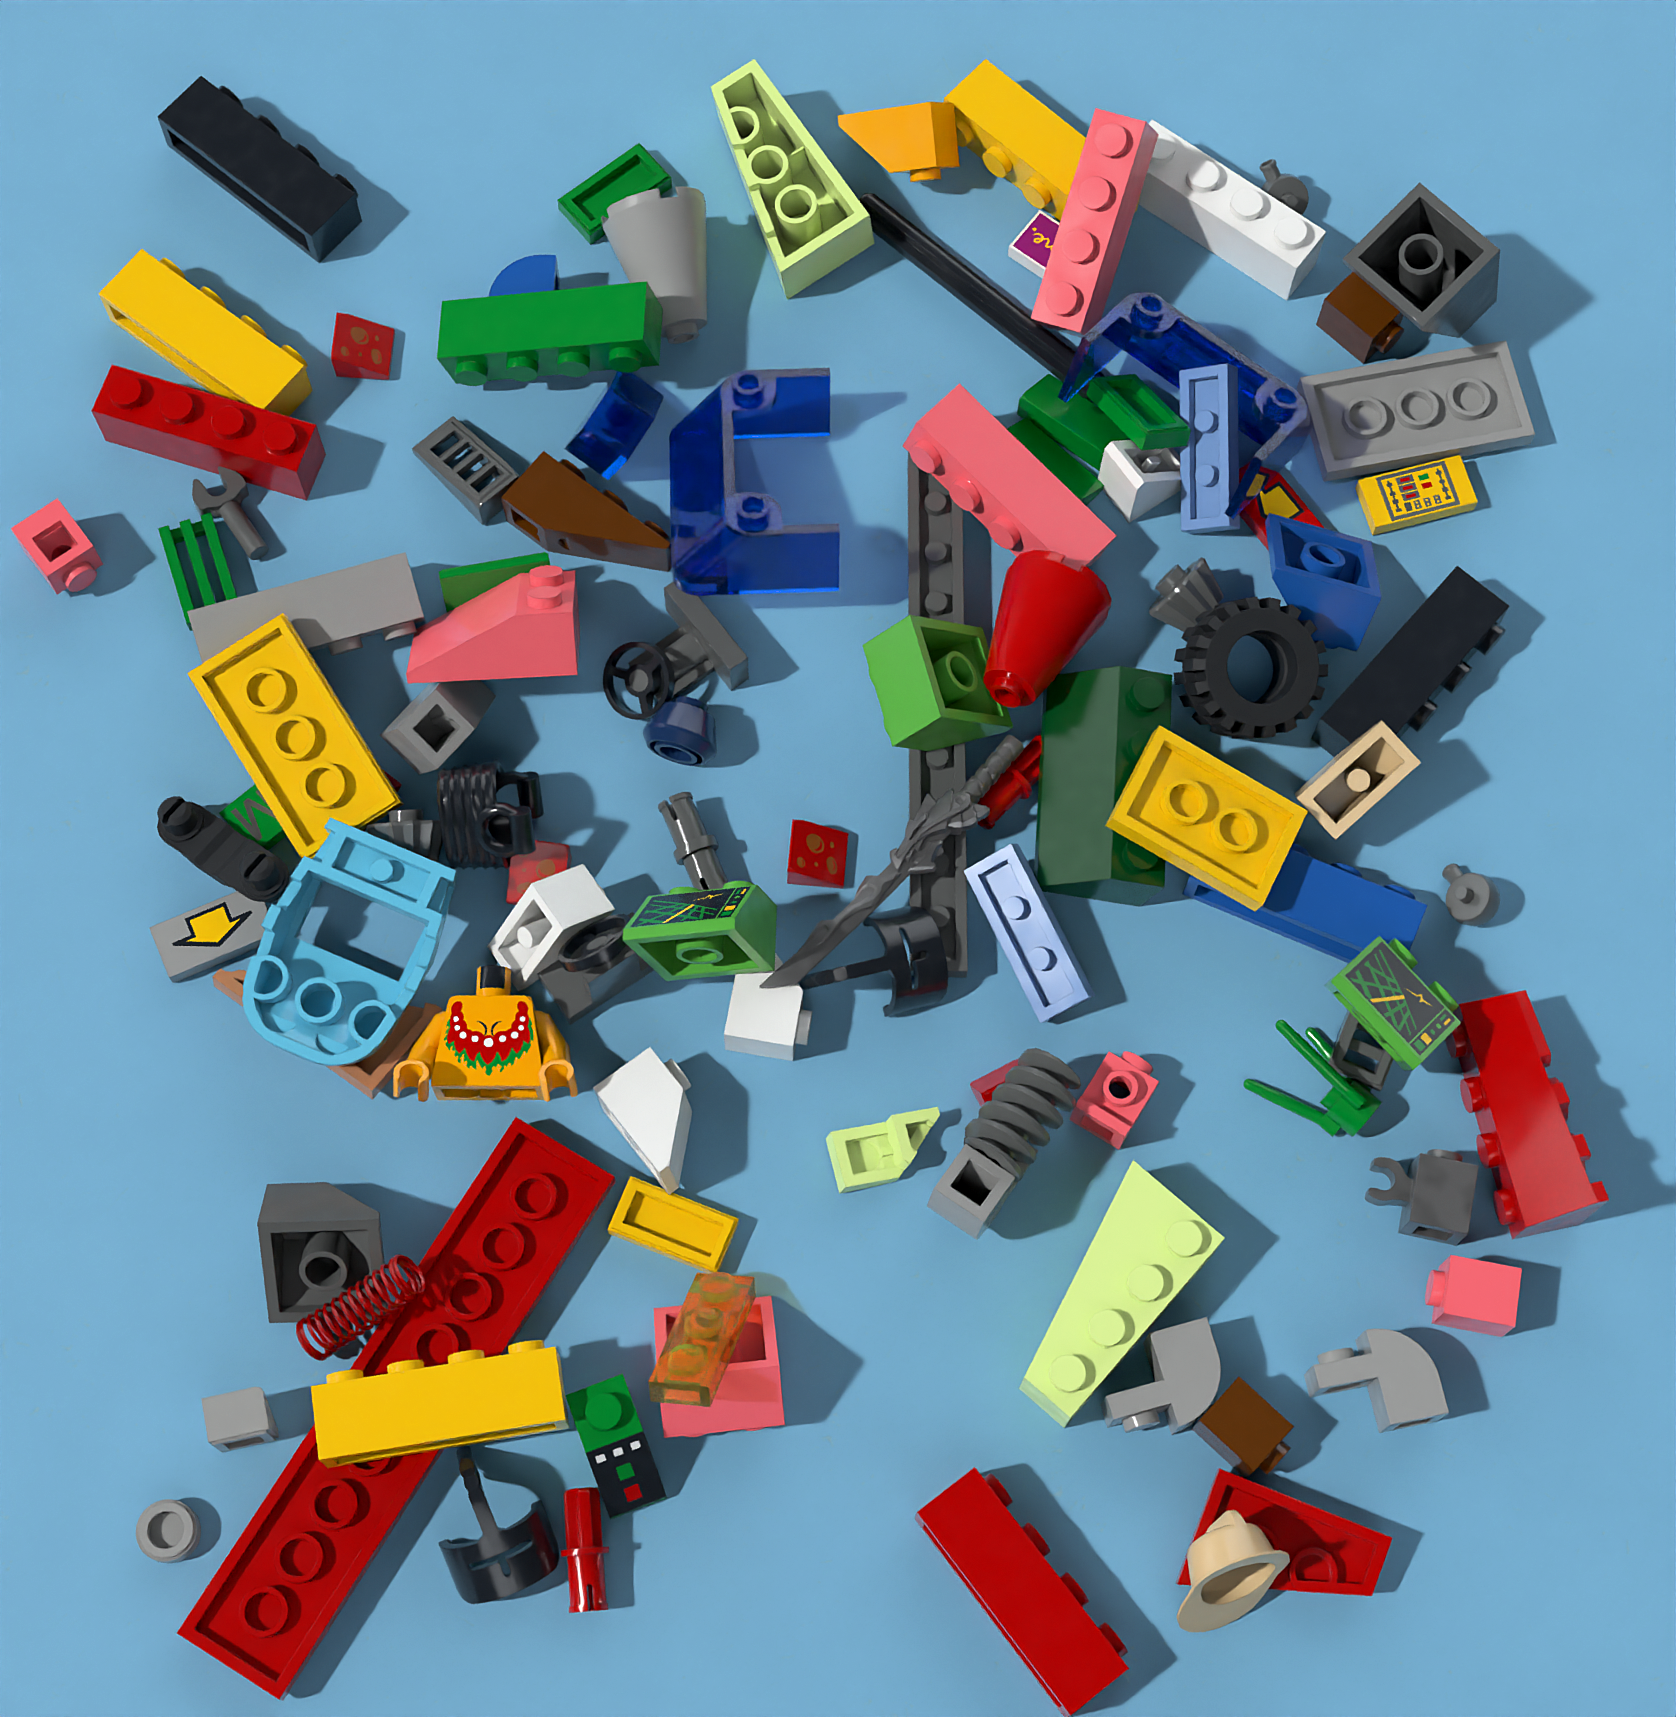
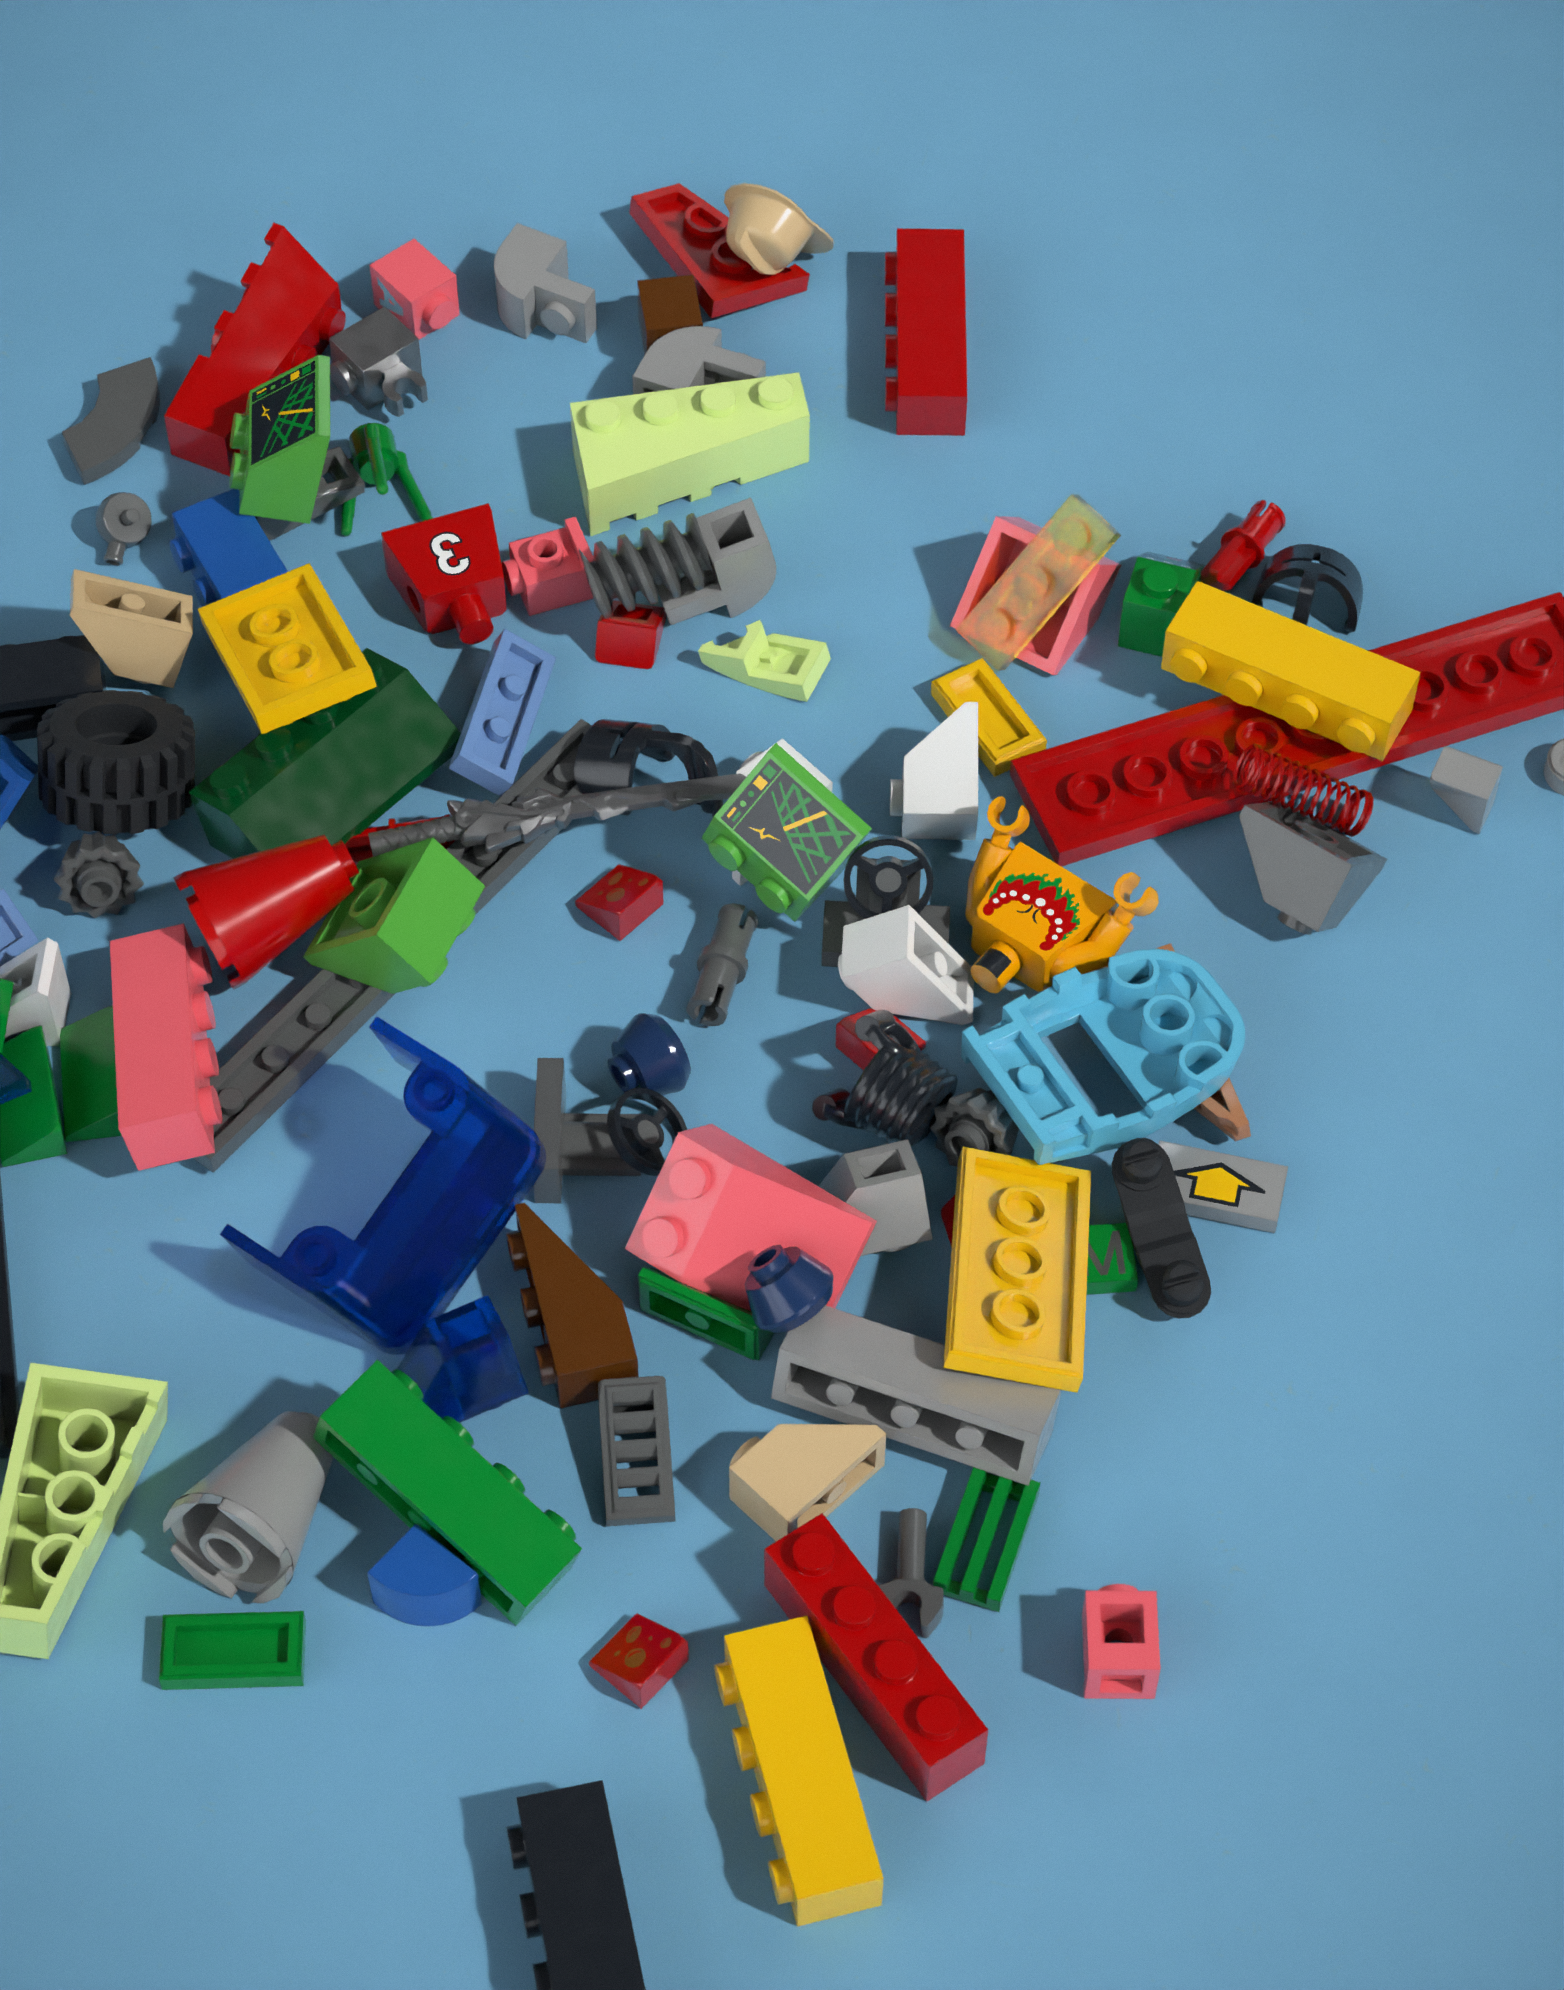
camera: 140 degrees left, 15 degrees down
(345, 516) = (803, 1472): none -> tan slope
(431, 598) = (786, 1288): none -> dark blue cone
(1183, 1032) = (449, 572): none -> red torso
(1576, 997) = (117, 423): none -> dark grey tile

